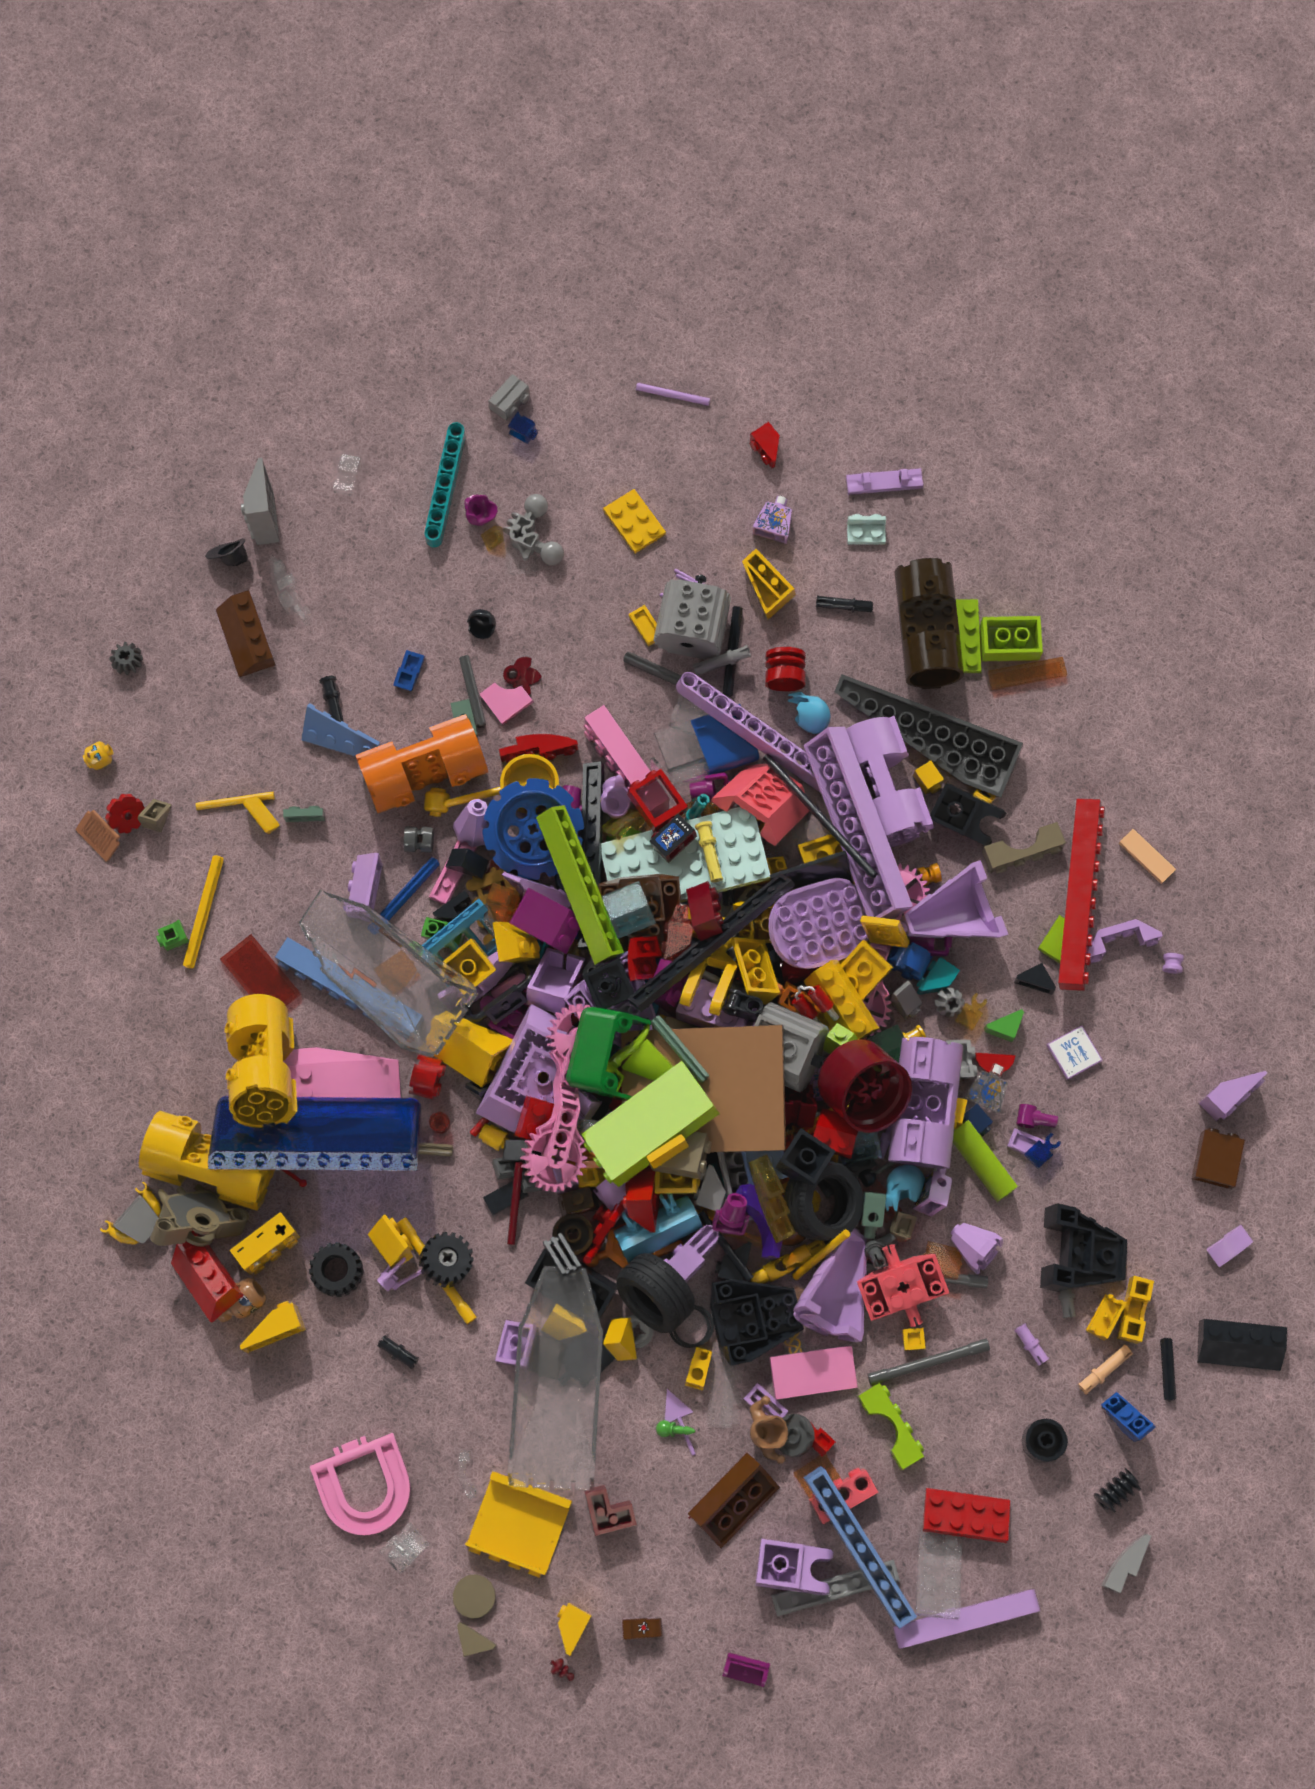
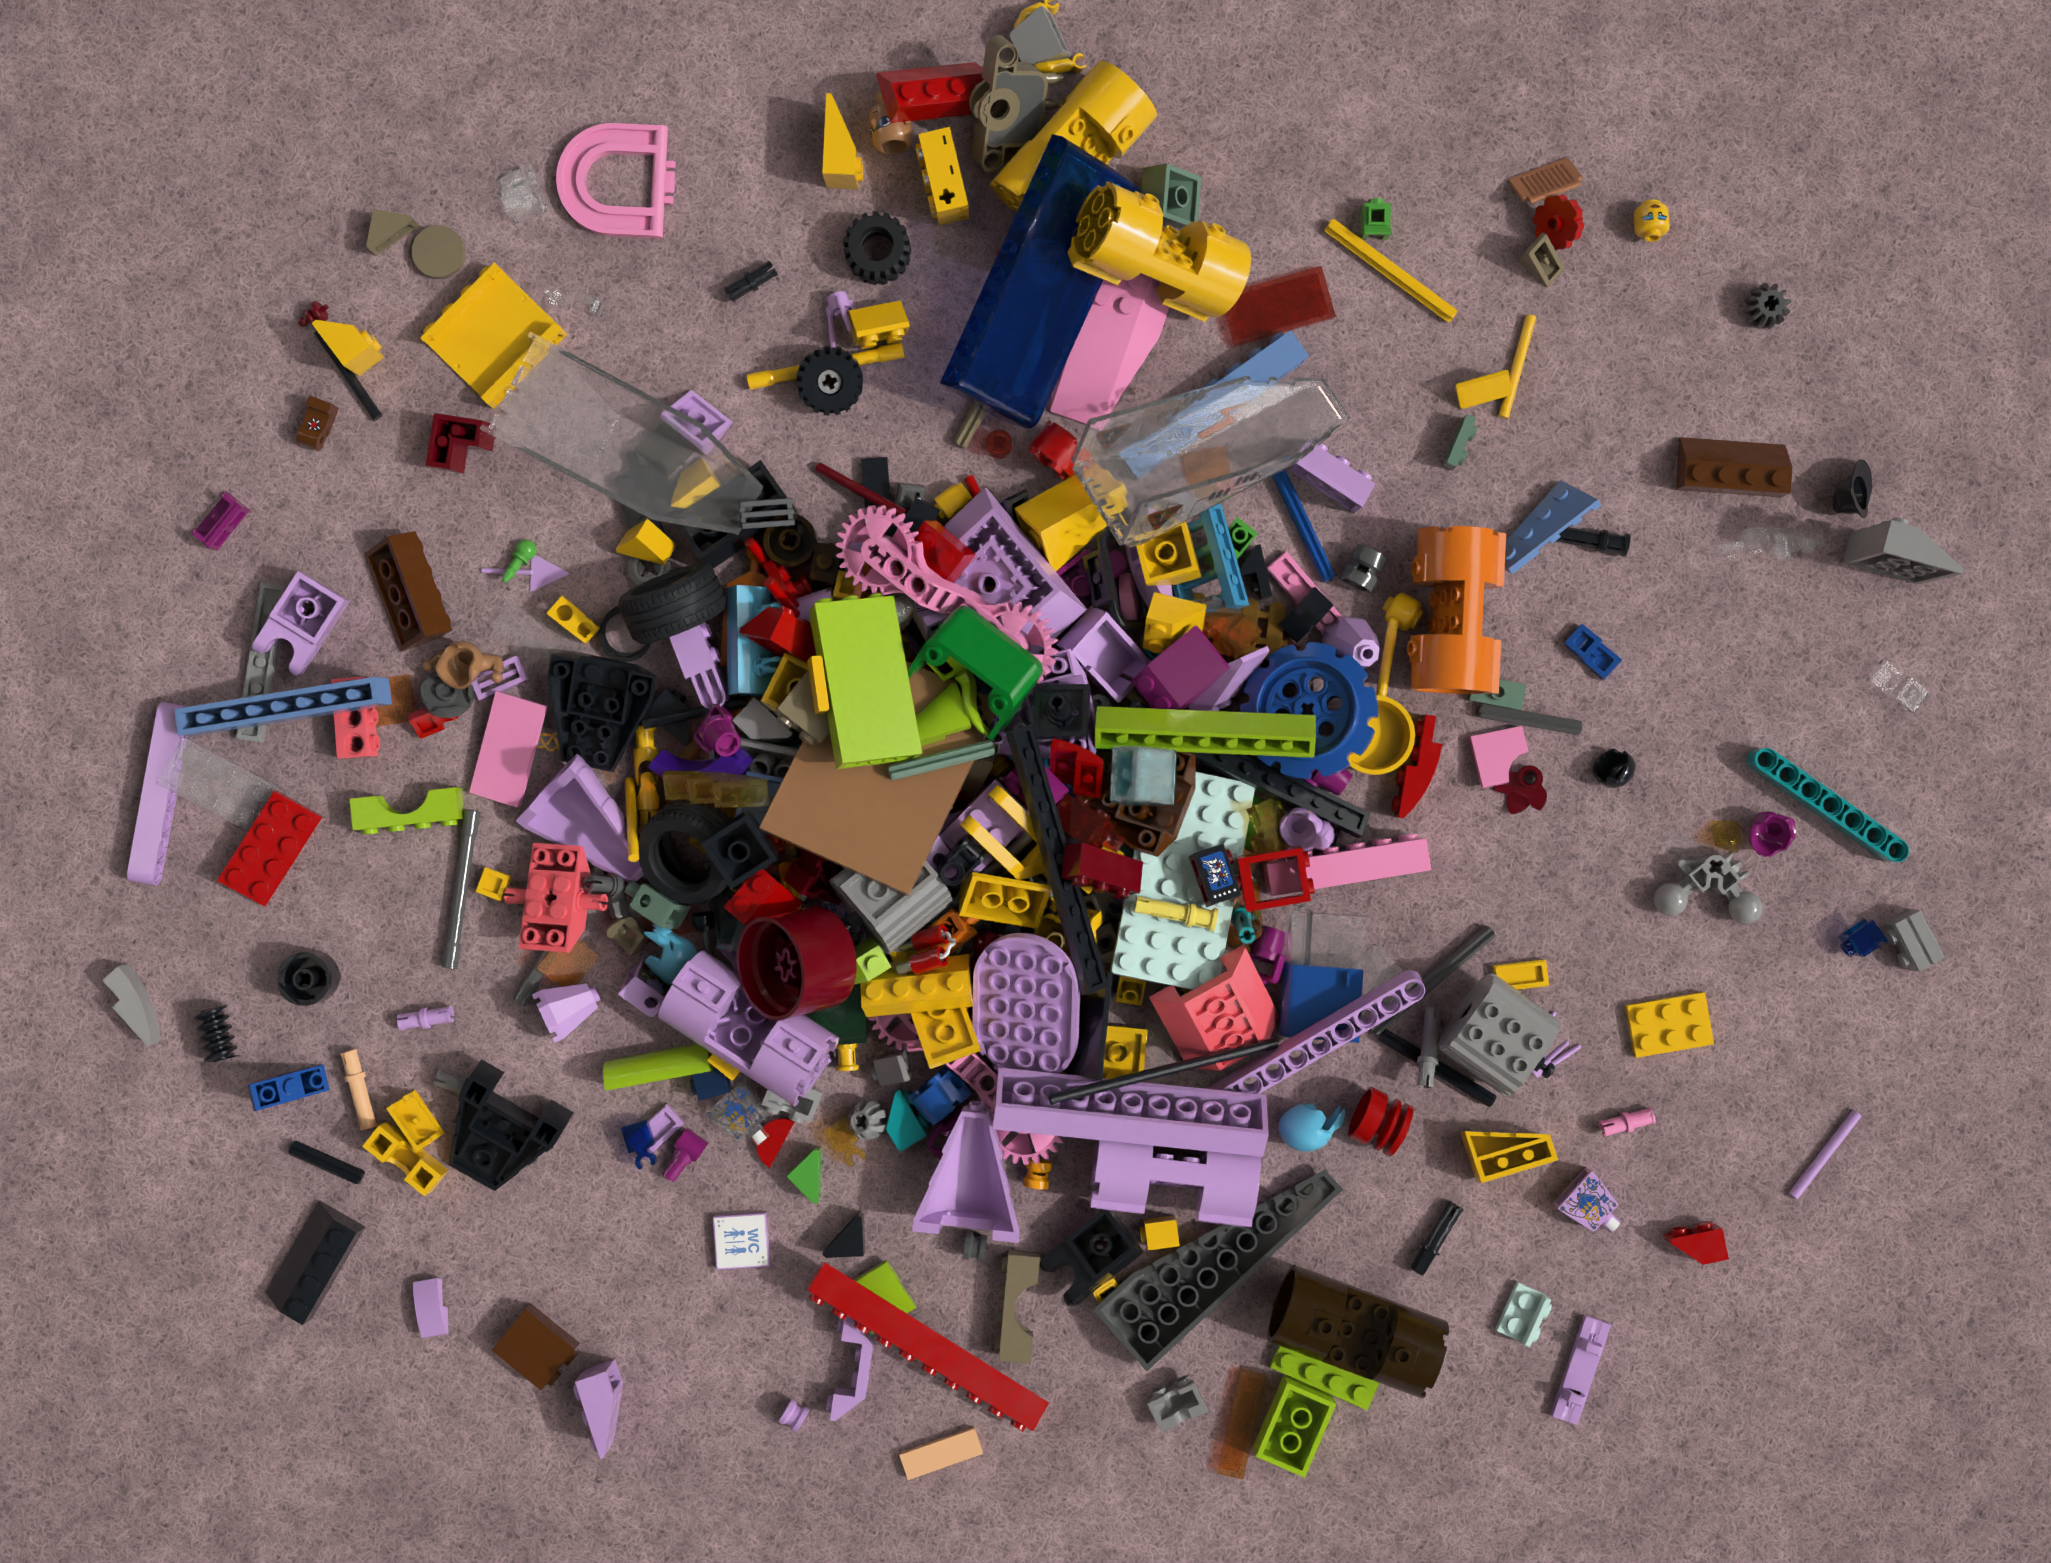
camera: 115 degrees right, 15 degrees up
(210, 1081) = (1176, 191): none -> sand green slope
(594, 1623) = (353, 382): none -> black bar
(710, 519) = (1626, 1122): none -> bright pink pin
(884, 931) = (980, 1080): yellow tile -> none
(999, 894) = (974, 1247): none -> dark grey wheel
(1034, 718) = (1176, 1403): none -> light grey cylinder

